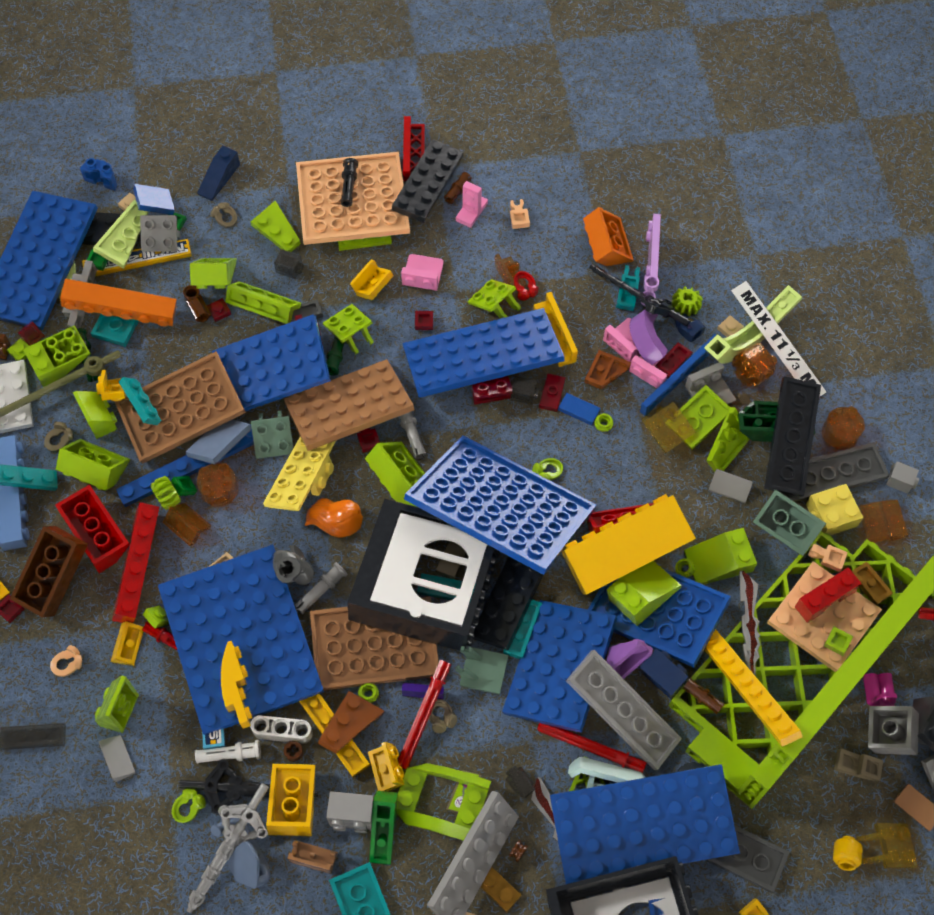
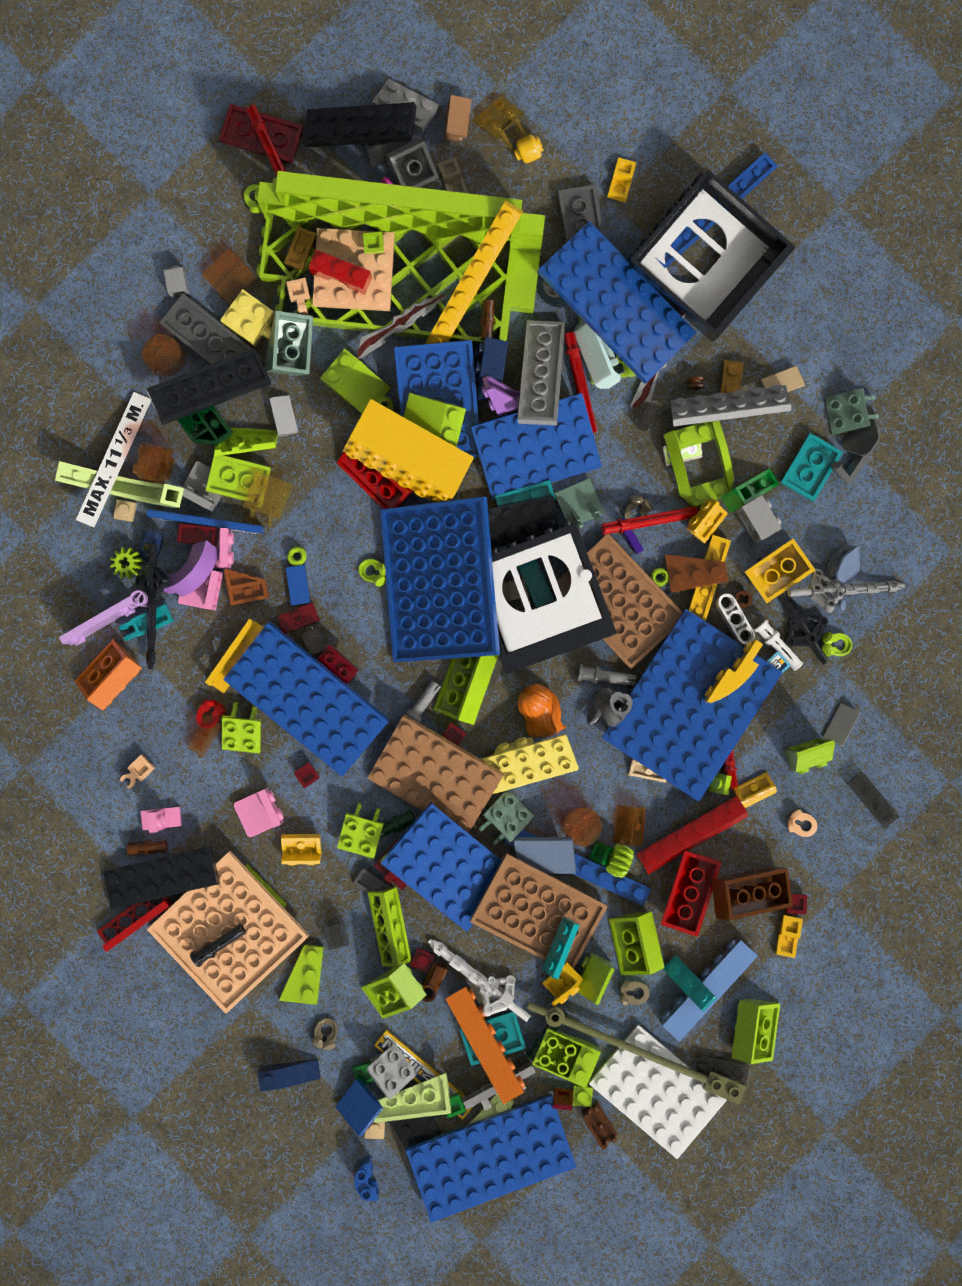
camera: 120 degrees left, 25 degrees up
(158, 335) = (488, 987): none -> white bar
(312, 857) = (806, 525): medium nougat hinge -> none

